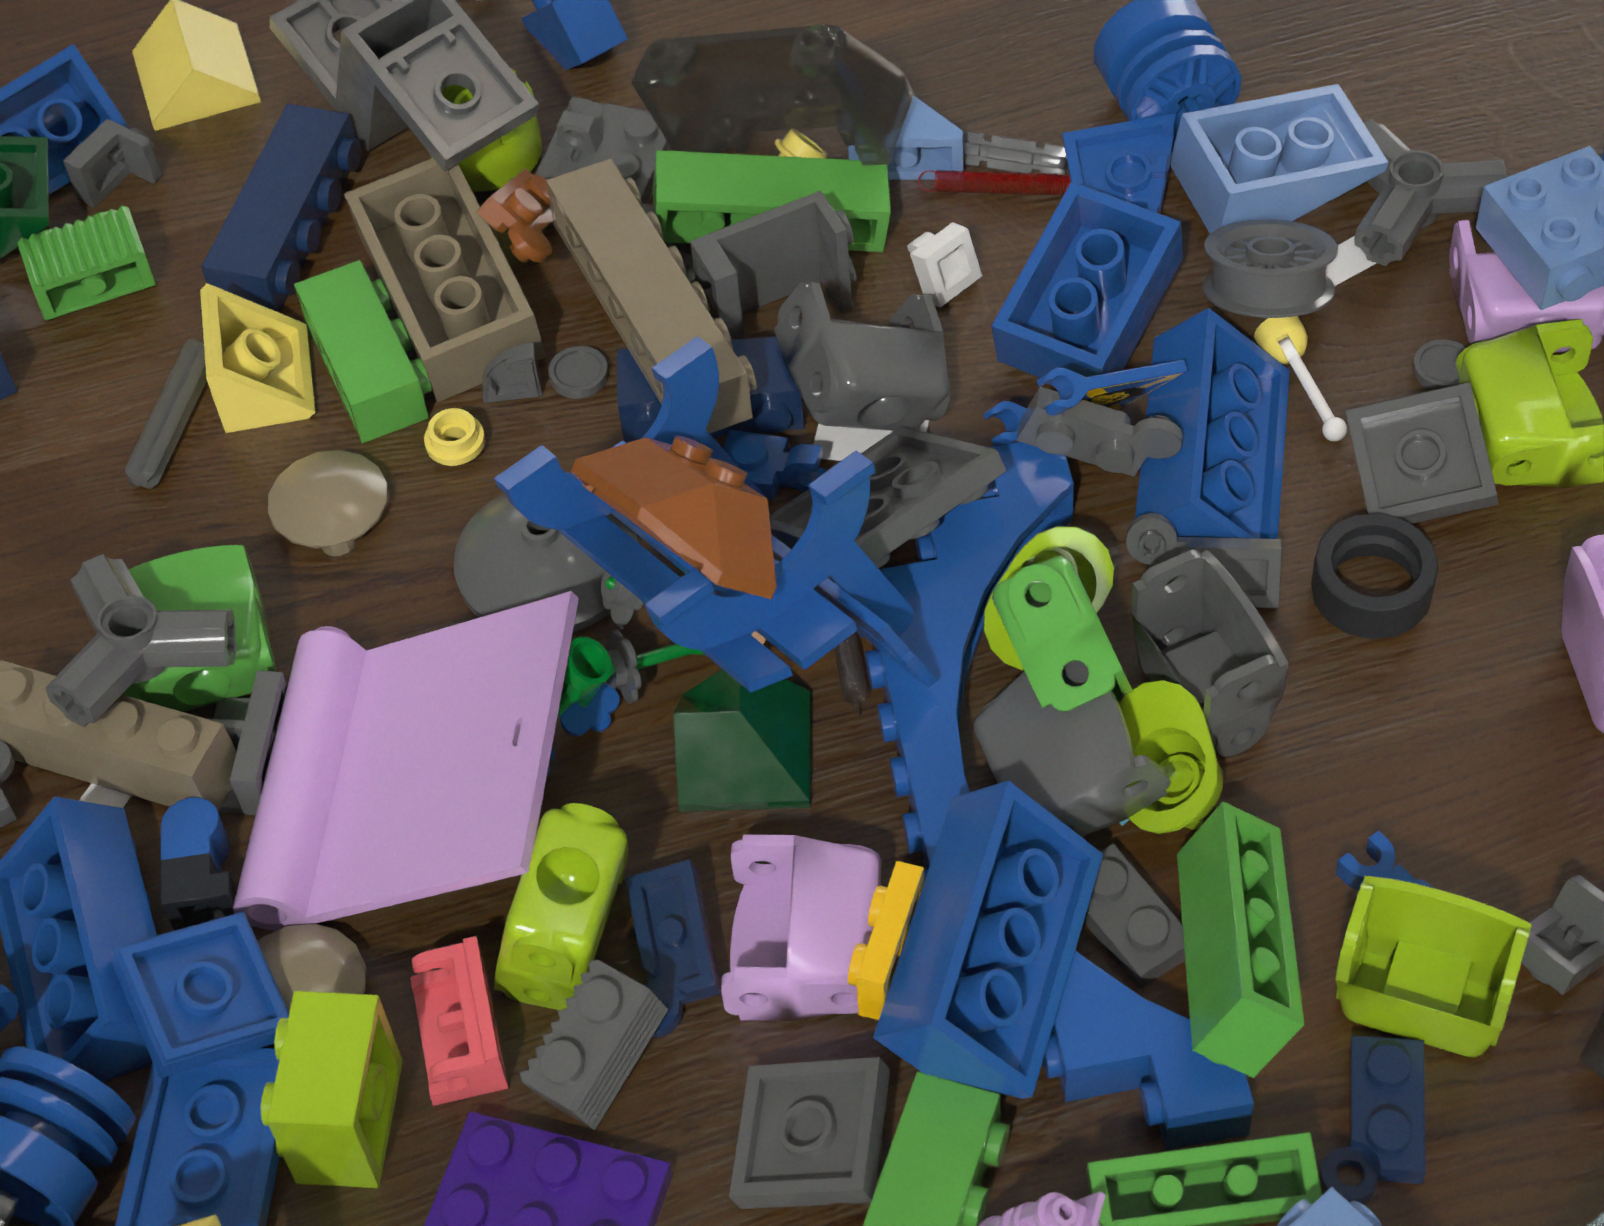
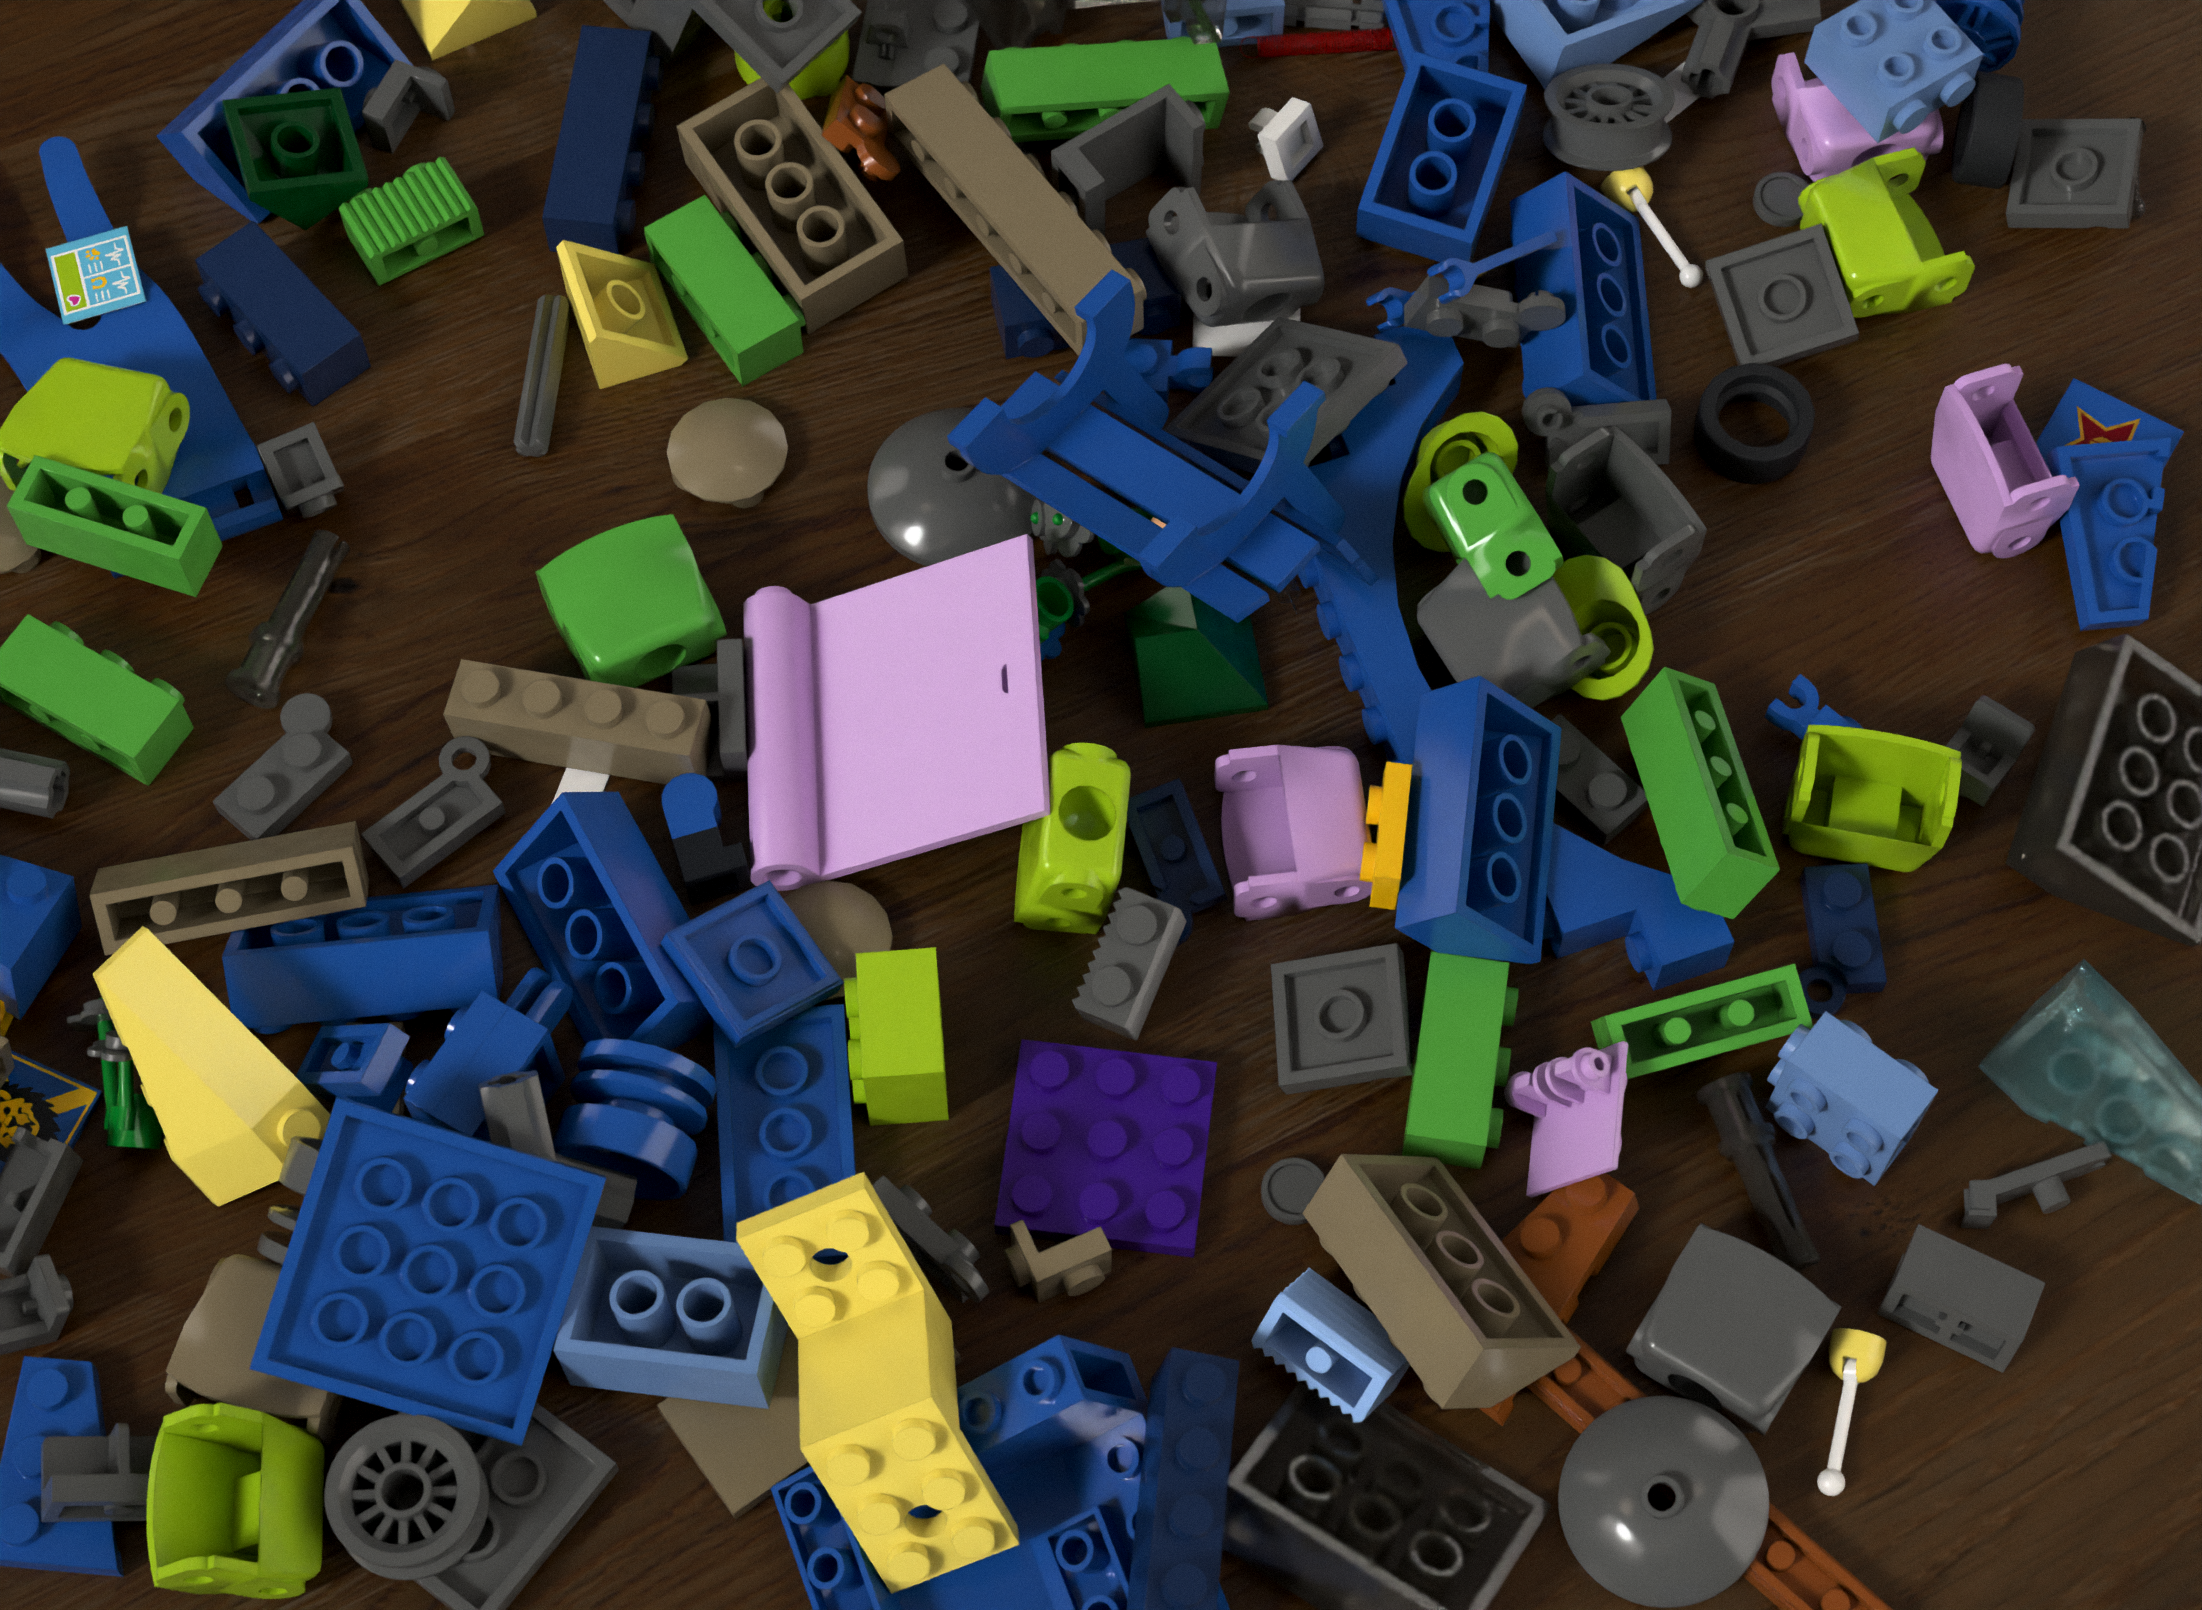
camera: 15 degrees left, 10 degrees up
(132, 641) = (589, 653): dark grey piece -> none
(454, 437) = (839, 359): light yellow plate -> none
(457, 1023) = (989, 958): coral hinge -> none
(512, 375) = (882, 301): dark grey tile -> none
(578, 372) = (943, 288): dark grey piece -> none
(690, 507) = (1150, 449): dark orange wedge -> none
(798, 145) = (1116, 26): light yellow plate -> none

